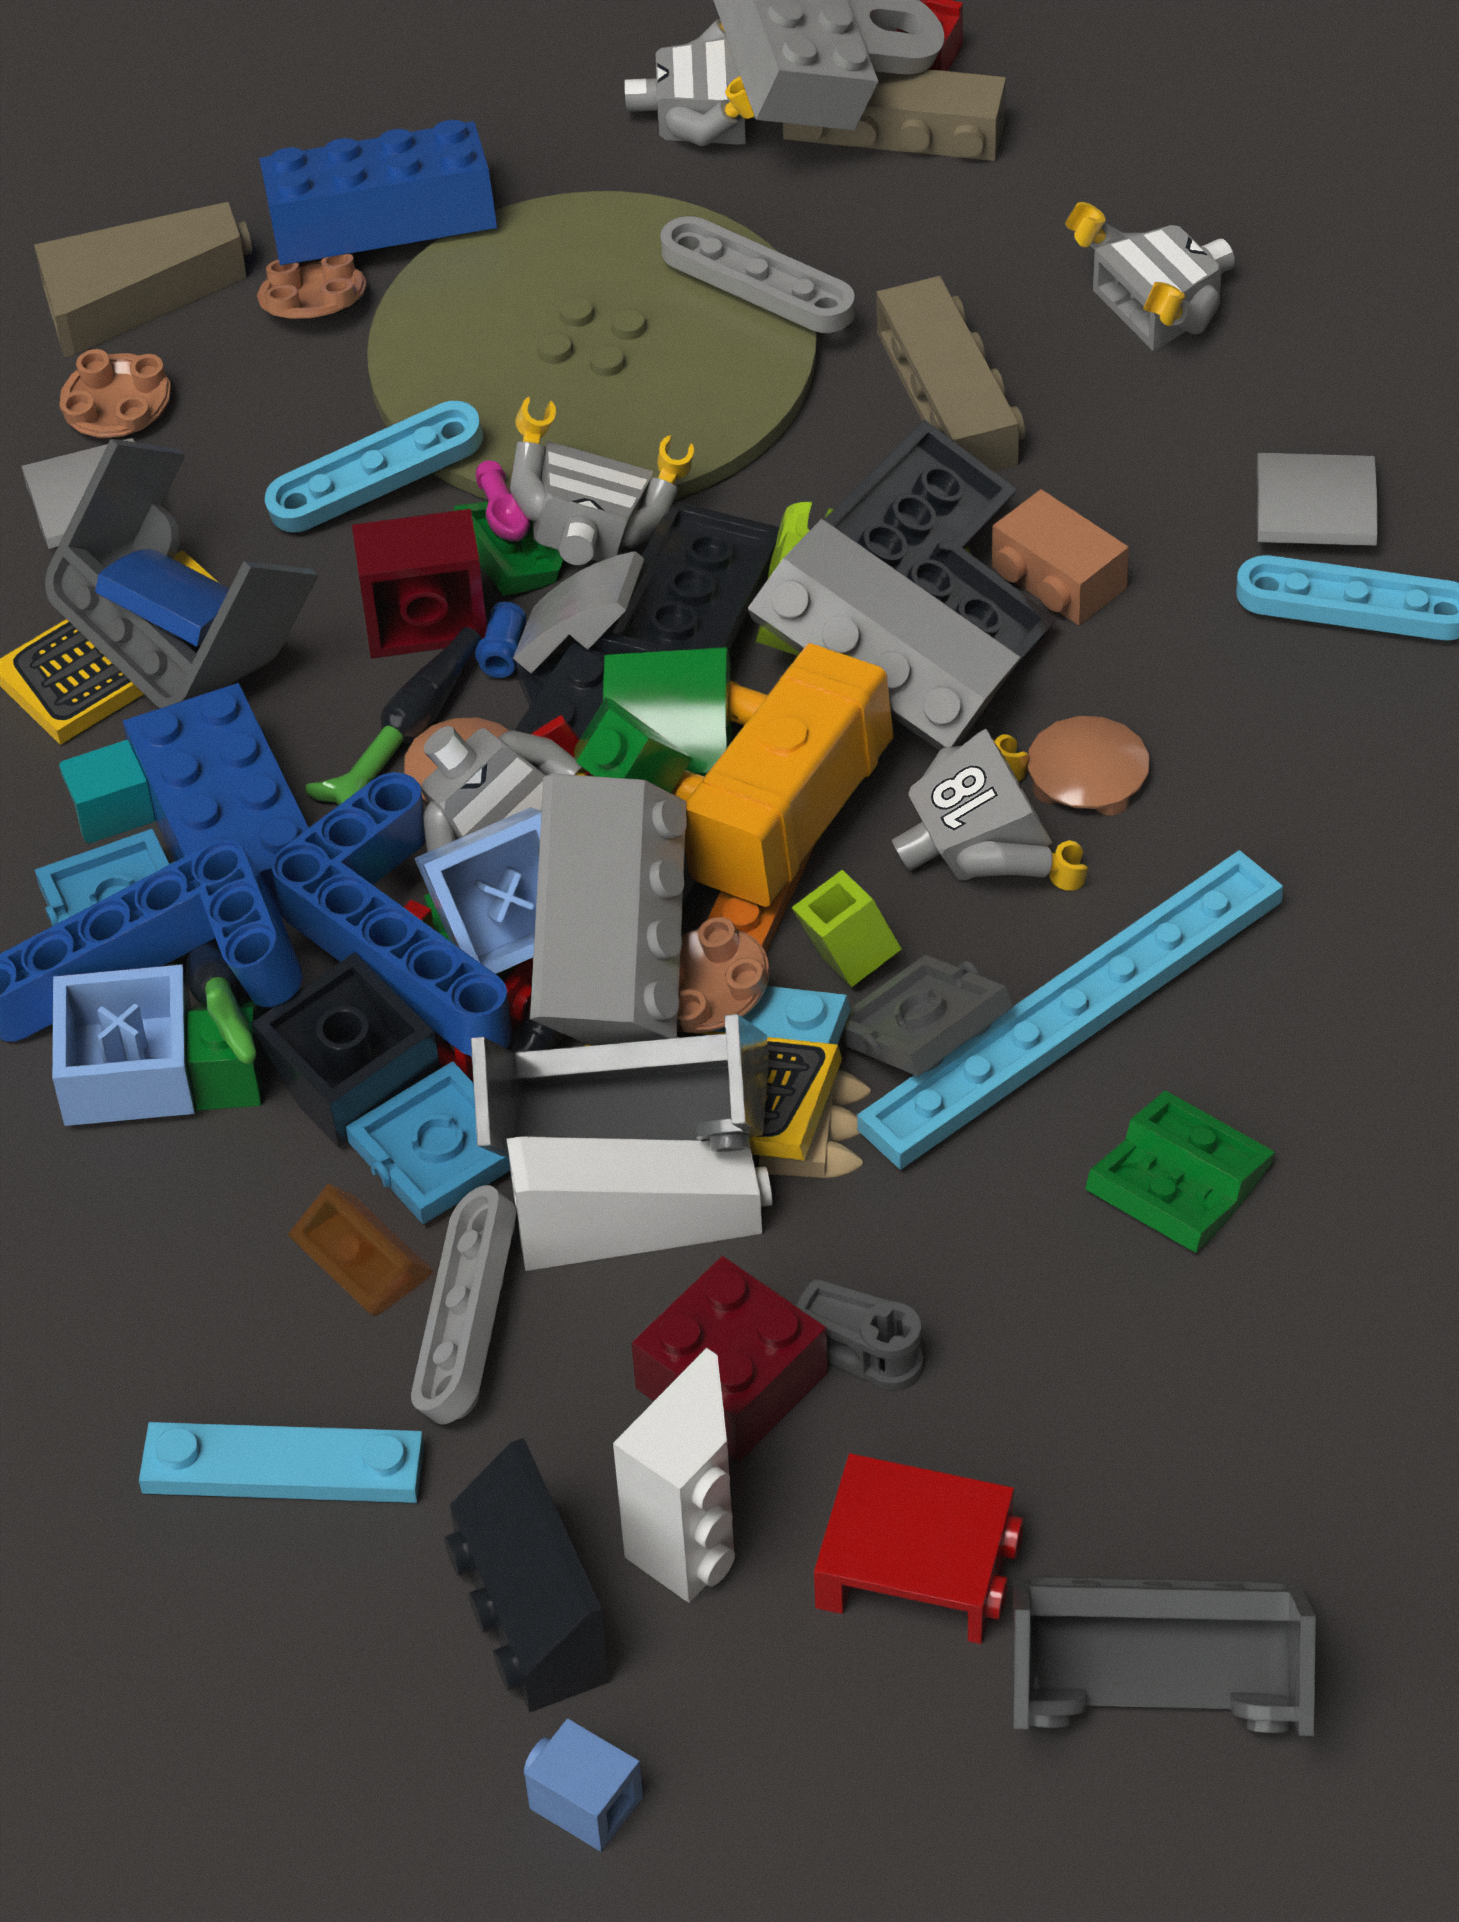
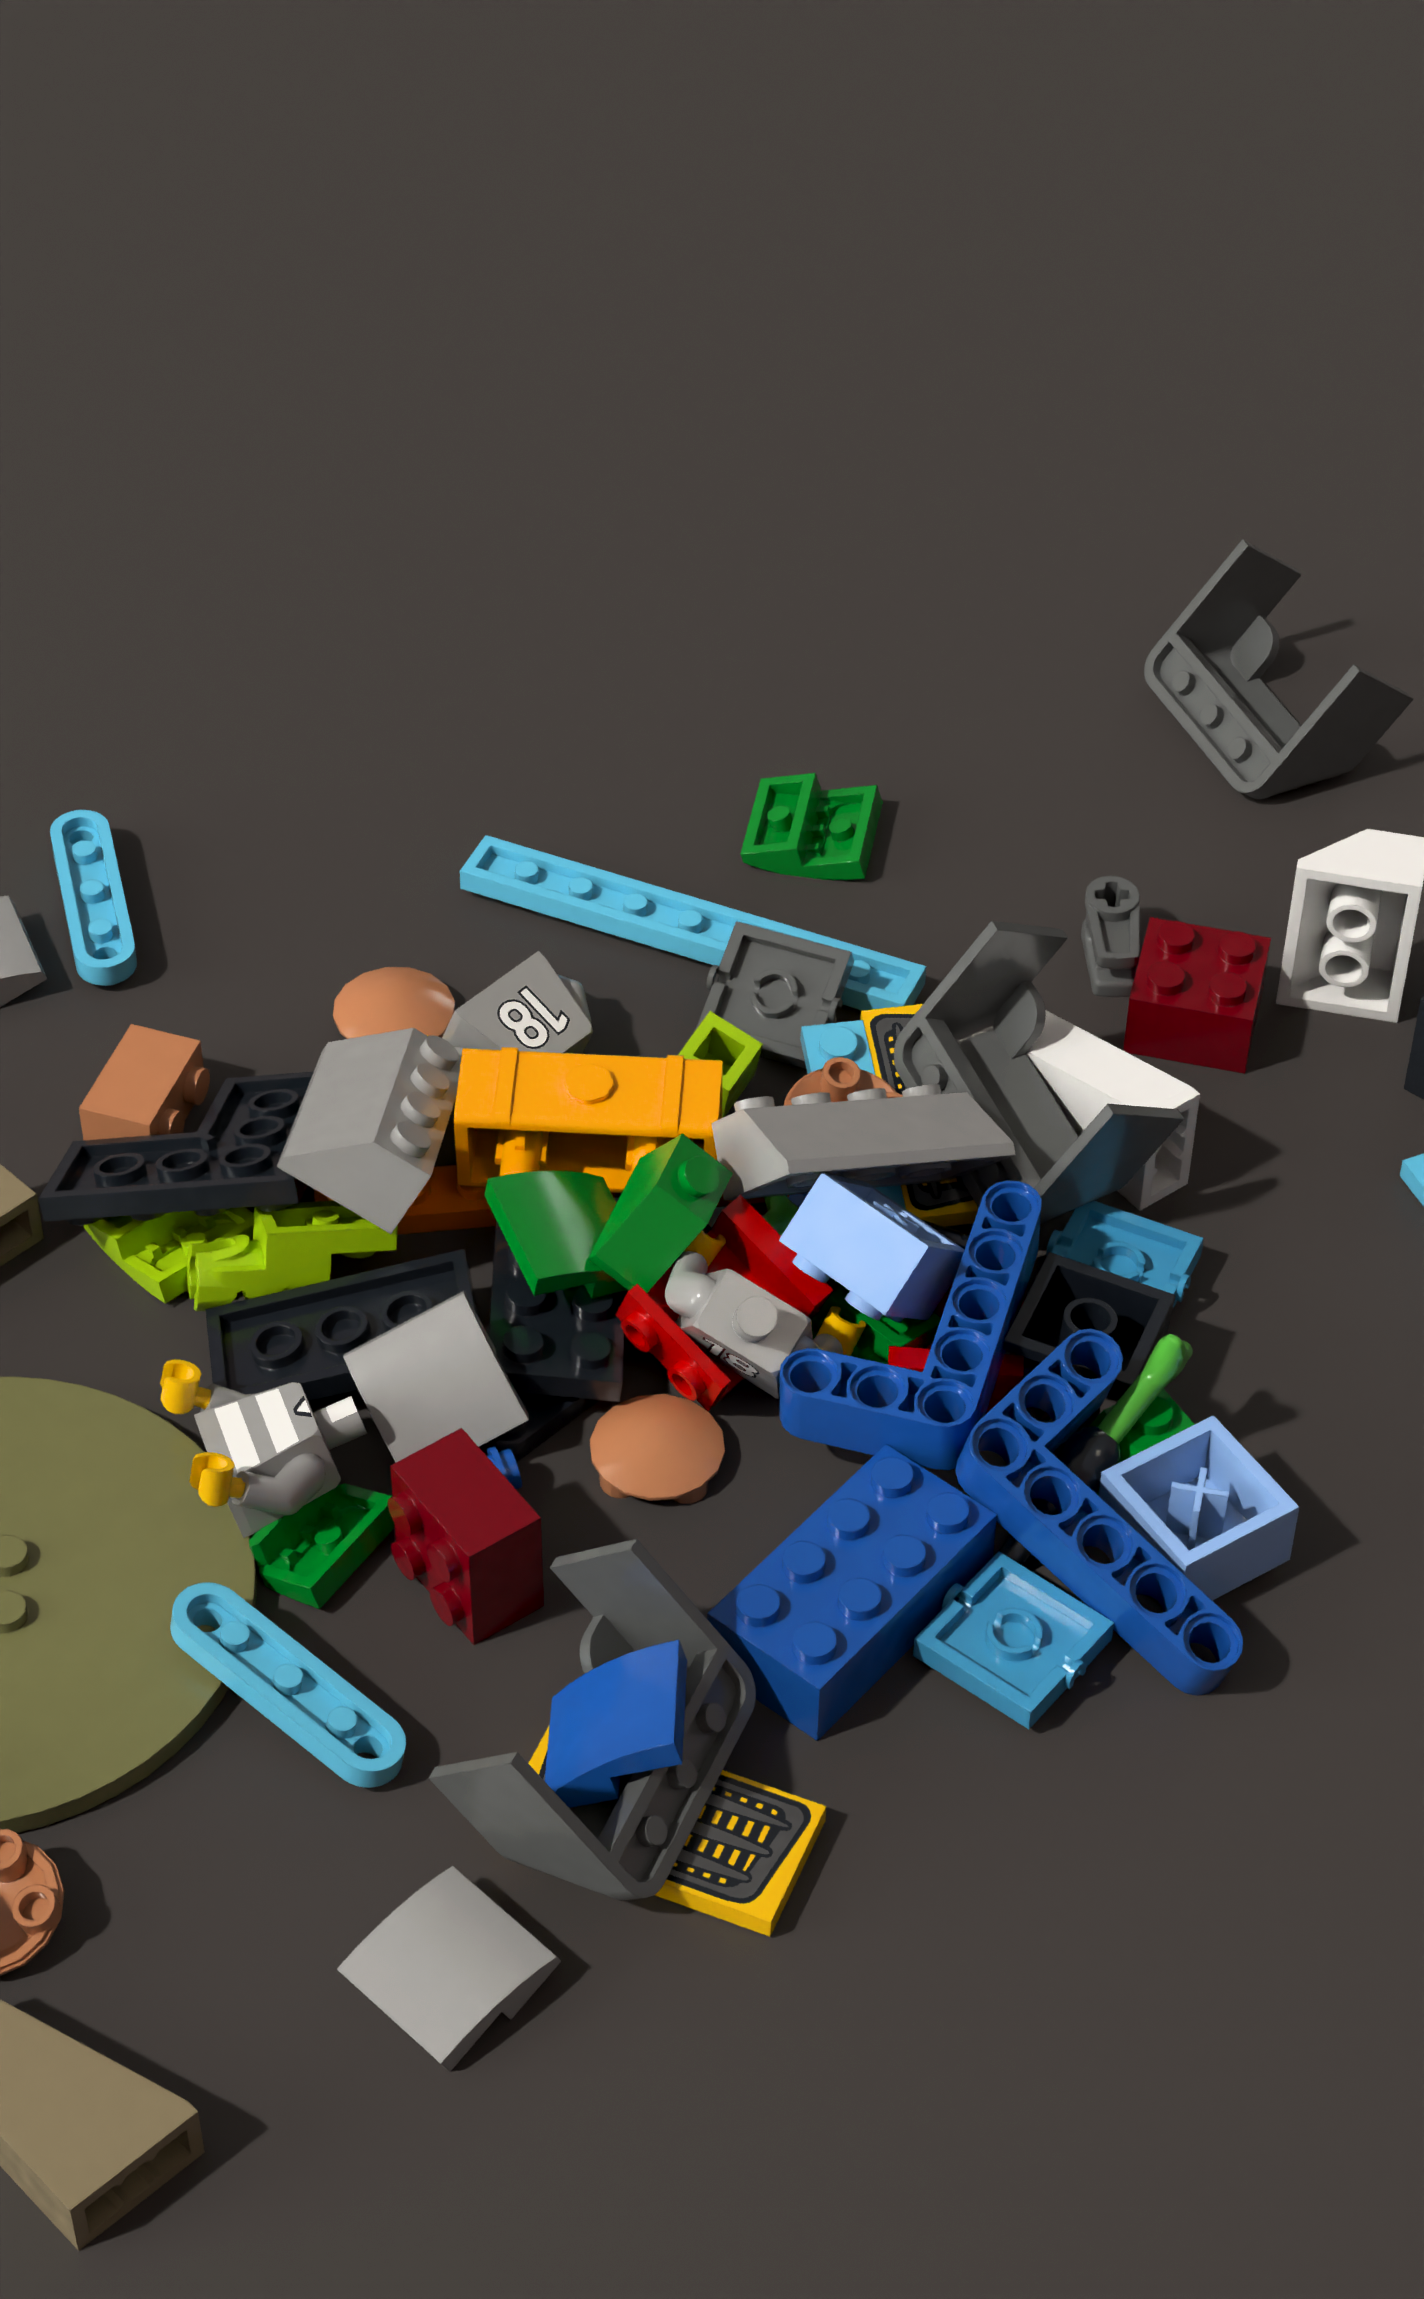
camera: 120 degrees left, 5 degrees down
(108, 791) = (887, 1695): teal panel -> none
(114, 393) = (267, 2029): nougat dish -> none
(358, 1250) = (1256, 1287): clear orange slope -> none
(403, 718) = (632, 1514): black piece -> none
(463, 1306) = (1269, 1177): light grey plate -> none
(502, 511) = (297, 1537): dark pink piece -> none
(918, 1540) = (1264, 833): red panel -> none

